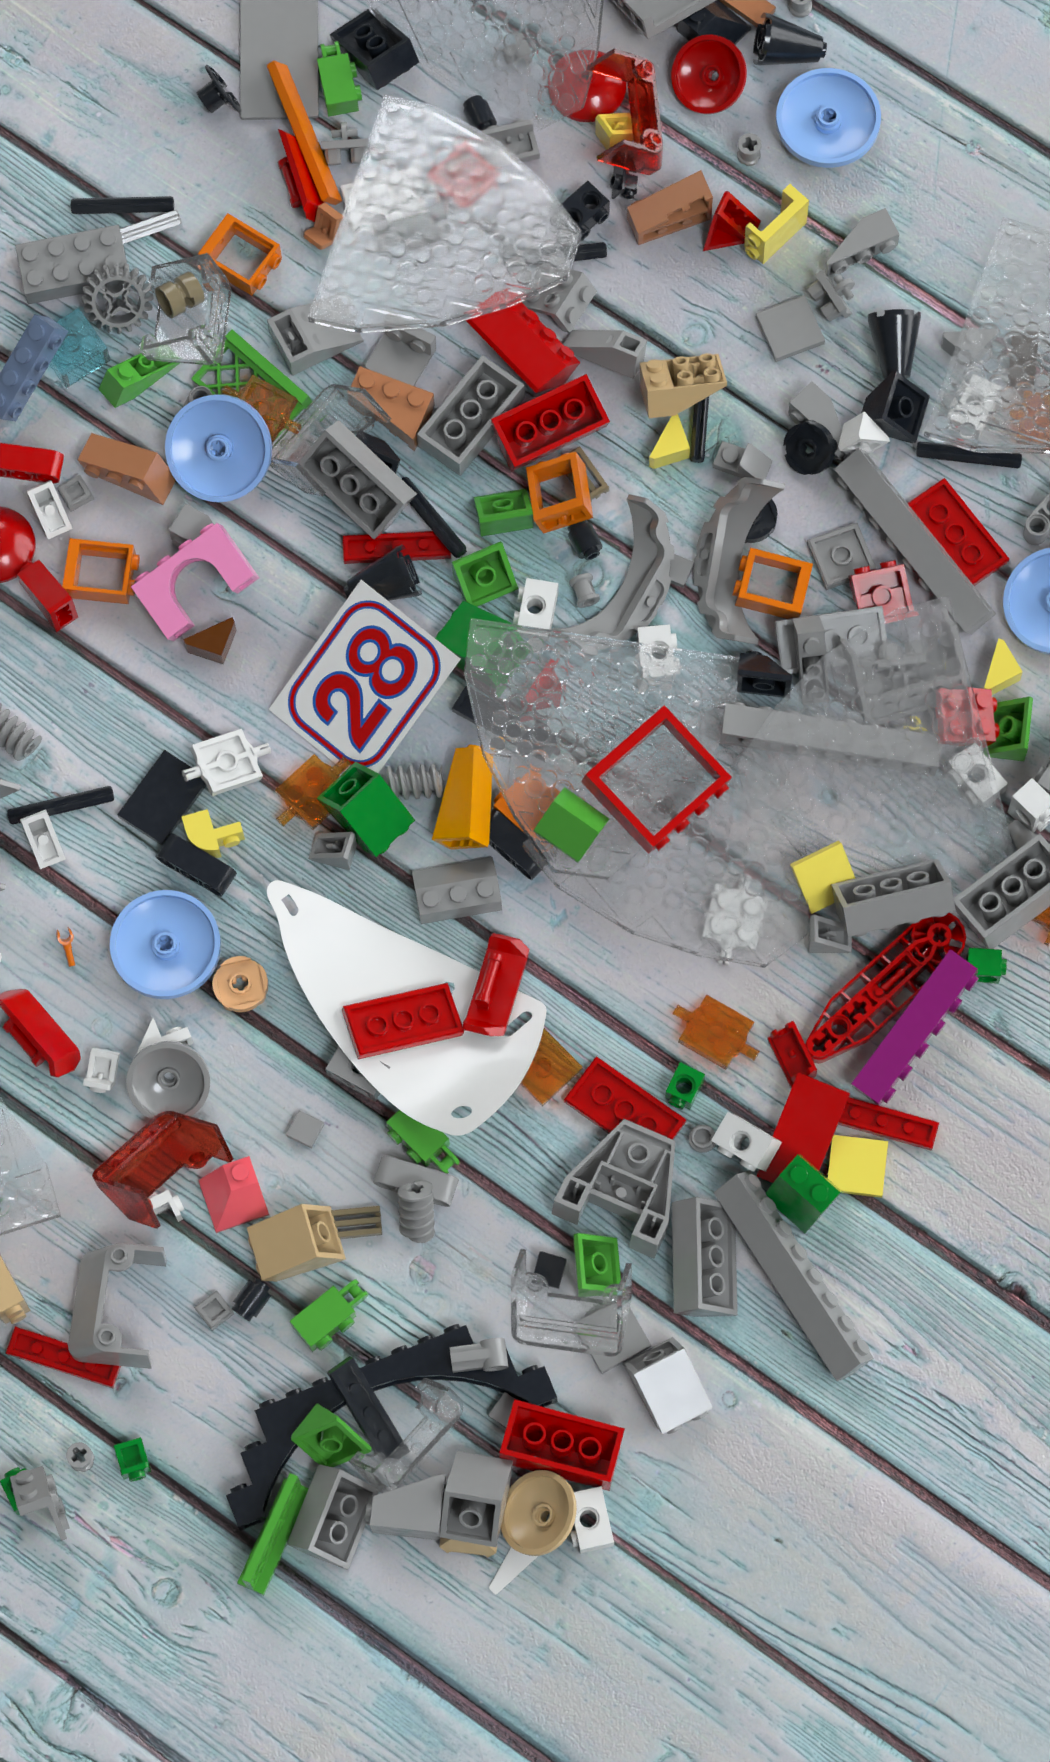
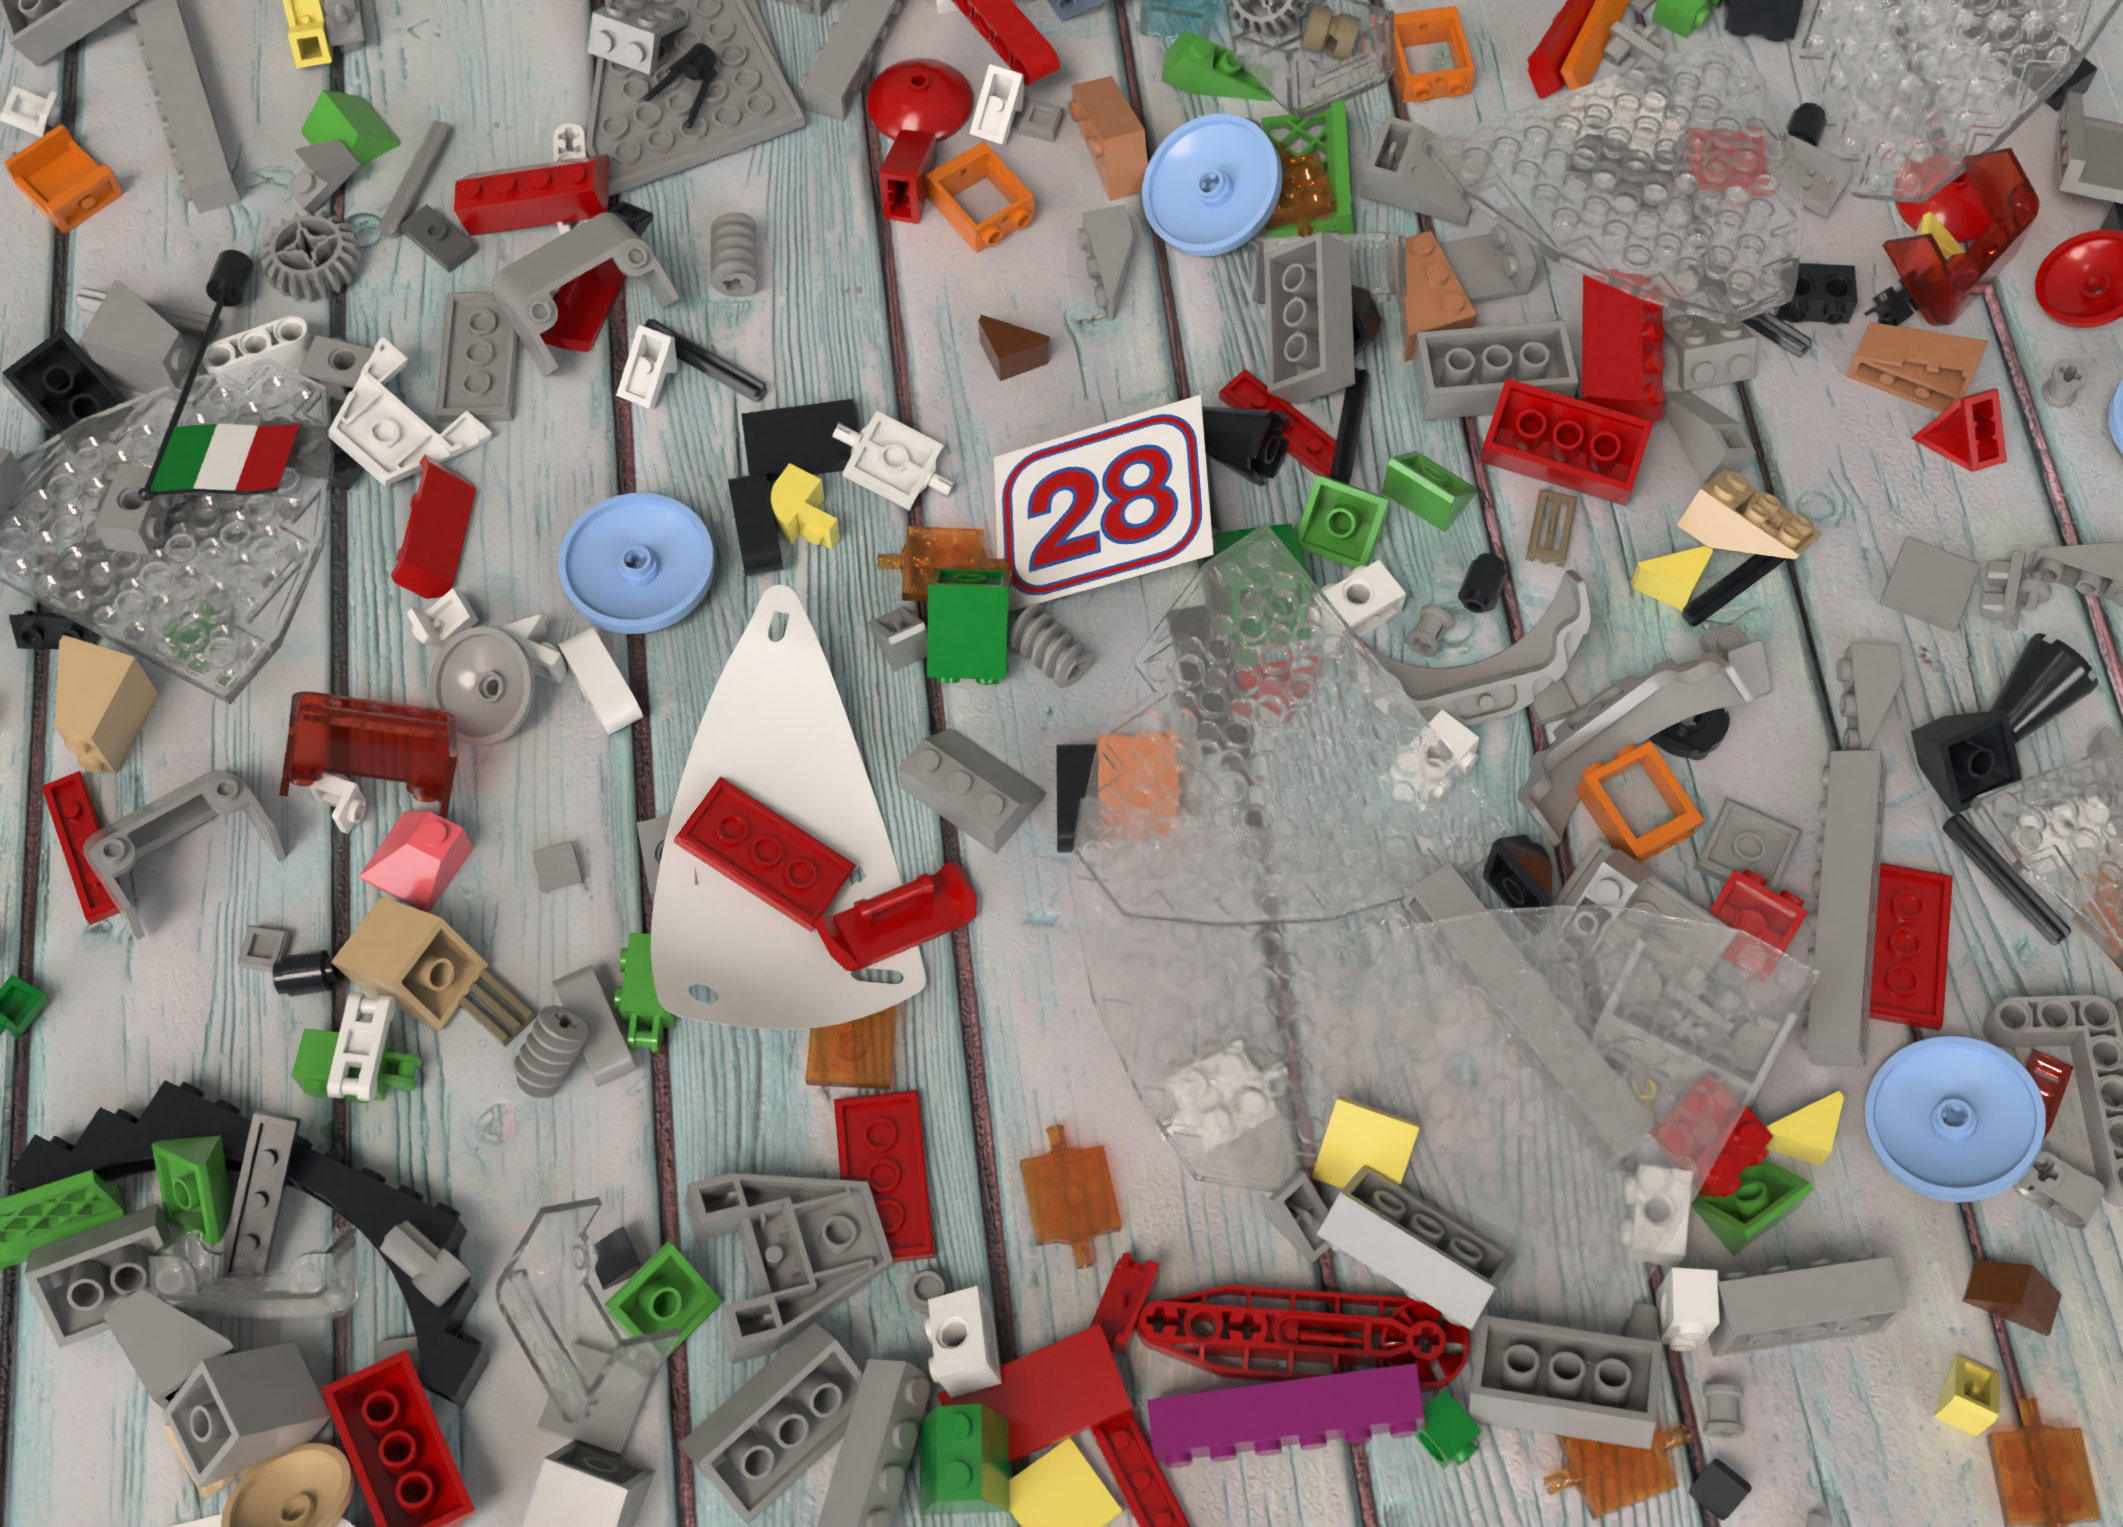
camera: 45 degrees right, 10 degrees down
(67, 946) = (557, 481): orange hand -> none
(157, 588) = (1015, 251): bright pink arch -> none
(217, 1021) = (600, 681): none -> white beam
(227, 976) = (669, 690): light nougat plate -> none
(325, 227) = (1547, 87): nougat bracket -> none
(330, 1299) = (360, 1046): none -> white plate
(466, 802) = (1067, 712): light orange slope -> none
(563, 513) = (1506, 540): orange window -> none
(571, 824) = (1142, 816): bright green slope -> none
(617, 808) = (1285, 798): red window -> none
(686, 1075) = (976, 1198): green brick -> none
(793, 216) = (2019, 475): light yellow panel -> none
(823, 444) = (1842, 718): black plate -> none
(863, 434) = (1902, 746): white slope -> none

